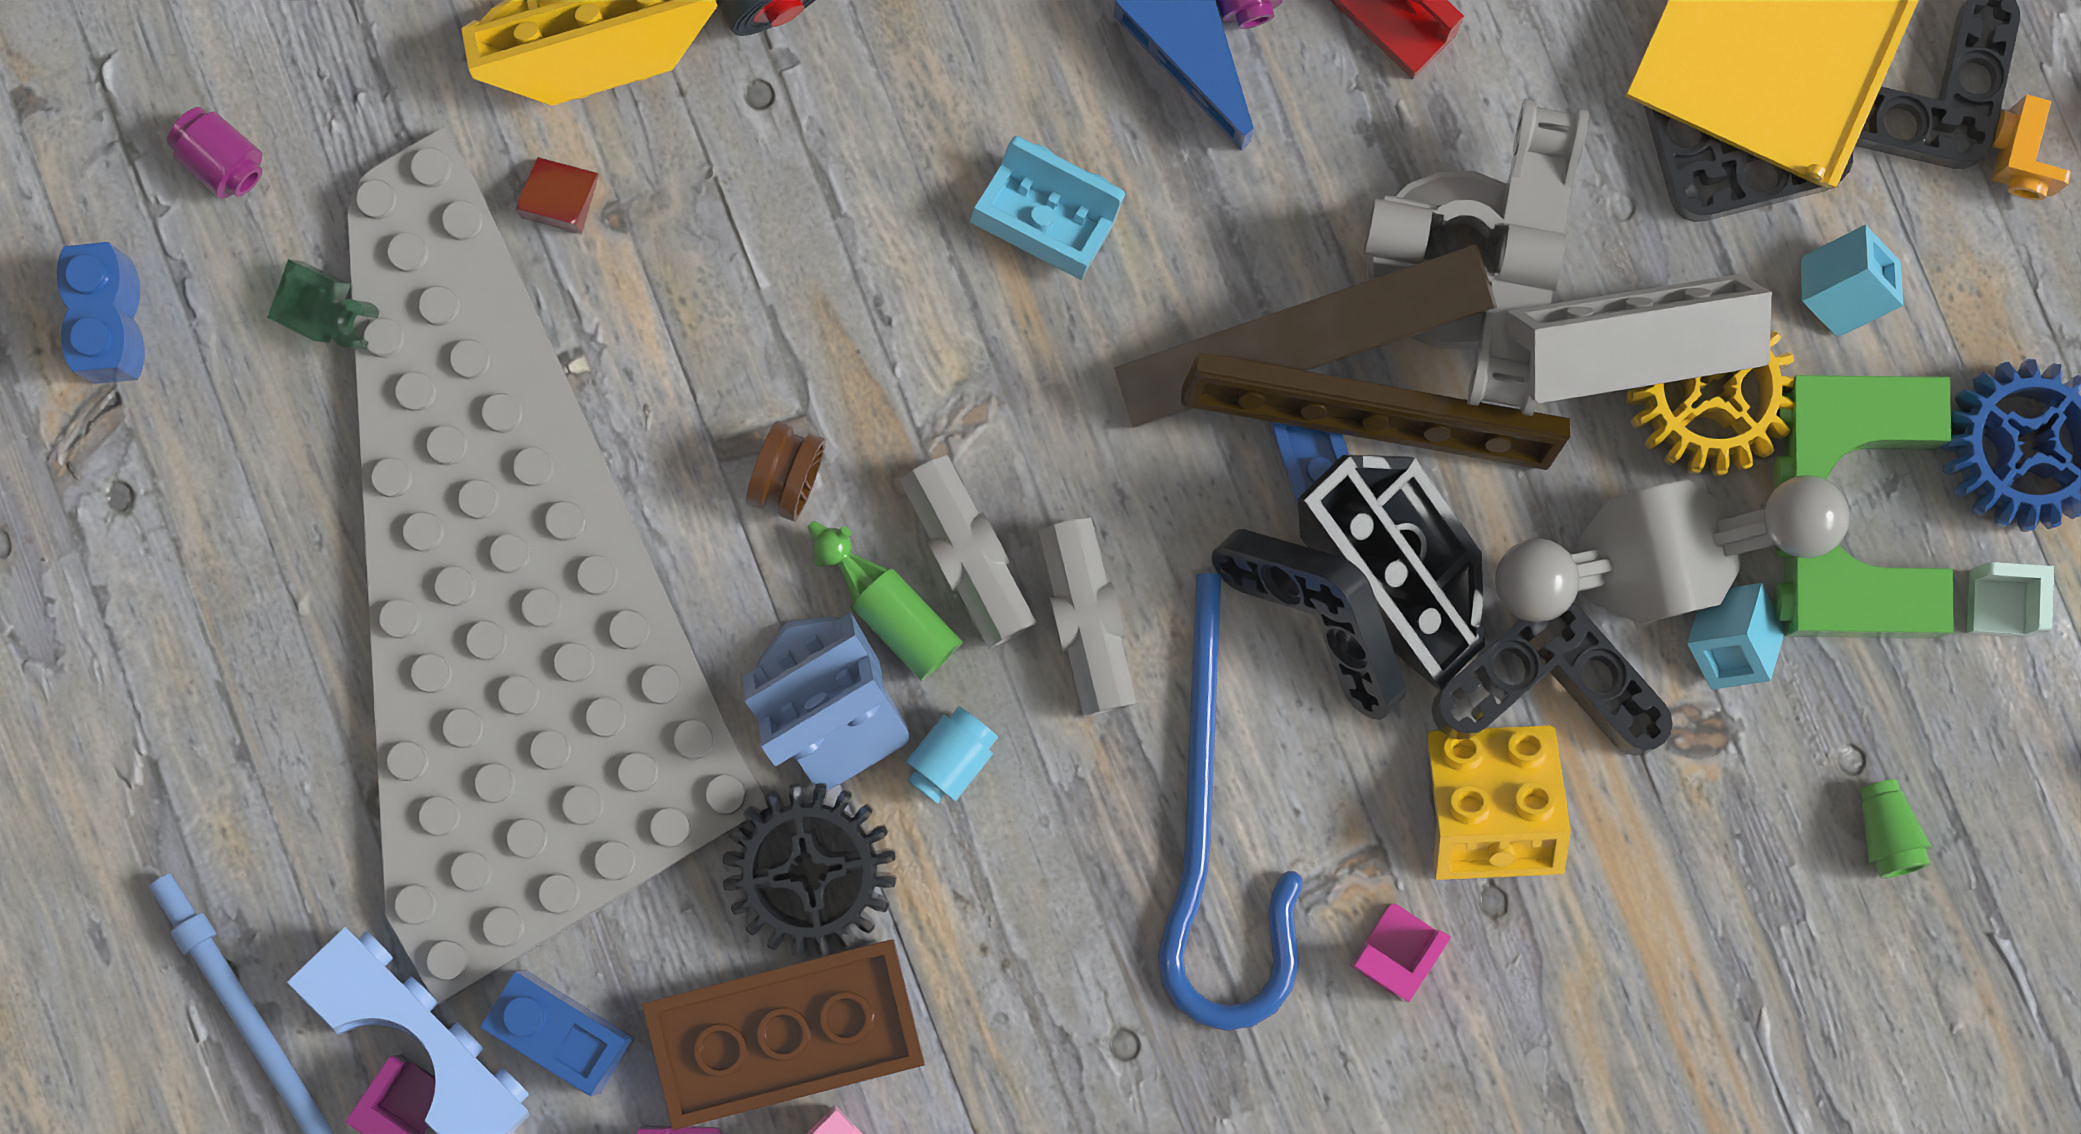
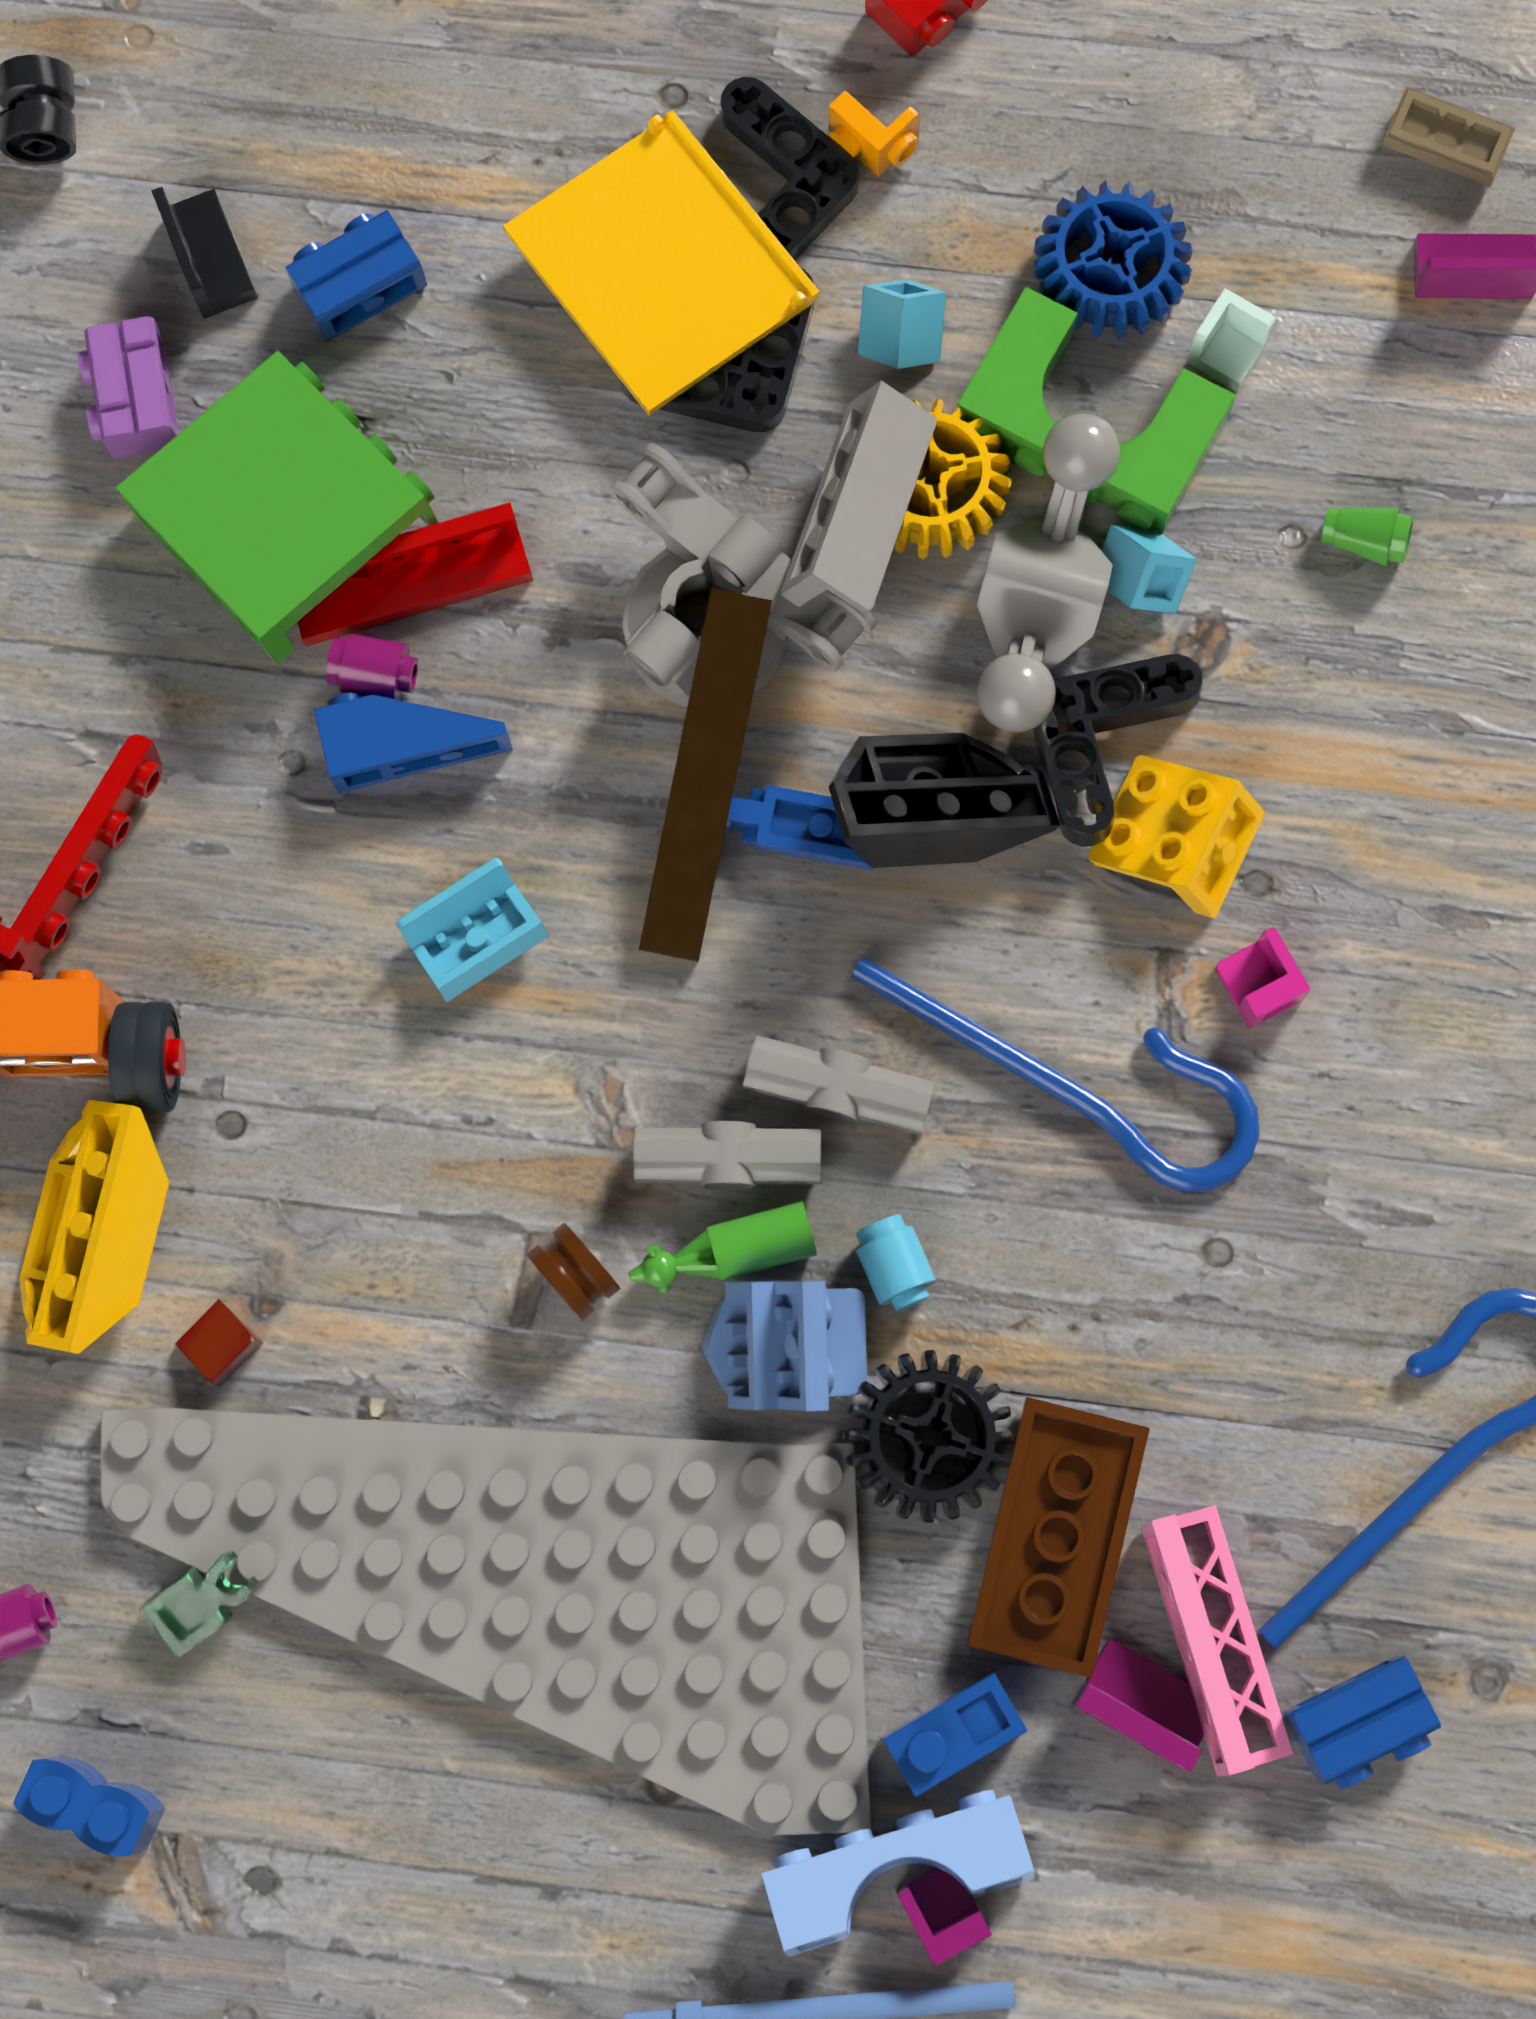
camera: 60 degrees left, 5 degrees down
(1338, 598) = (935, 862): black beam -> none
(1373, 411) = (797, 754): dark brown tile -> none

